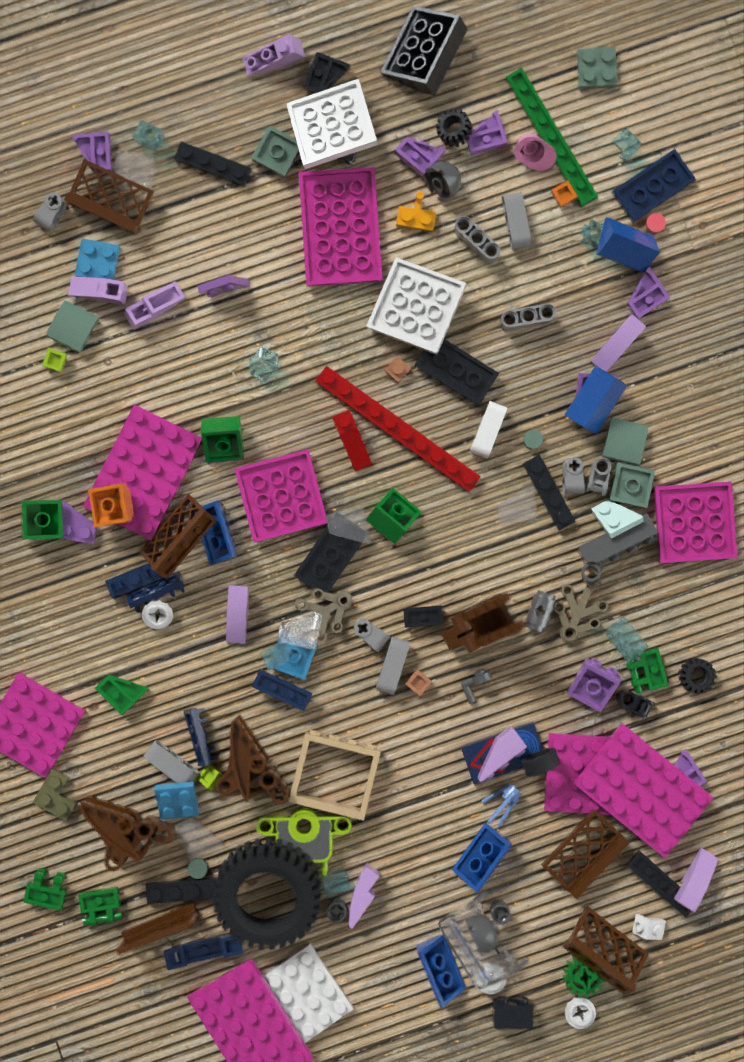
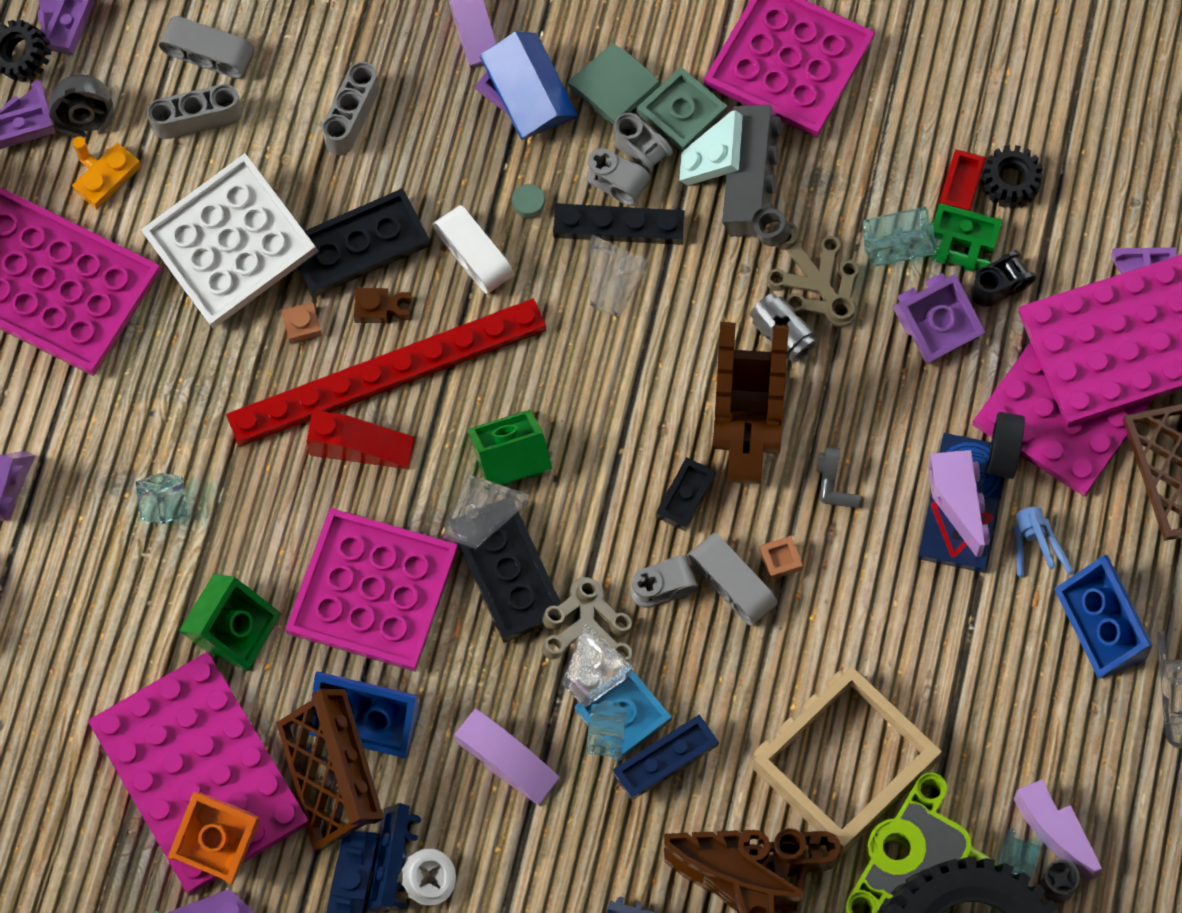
camera: 55 degrees left, 20 degrees down
(429, 400) = (375, 305): none -> reddish brown plate
(679, 651) = (962, 180): none -> red tile

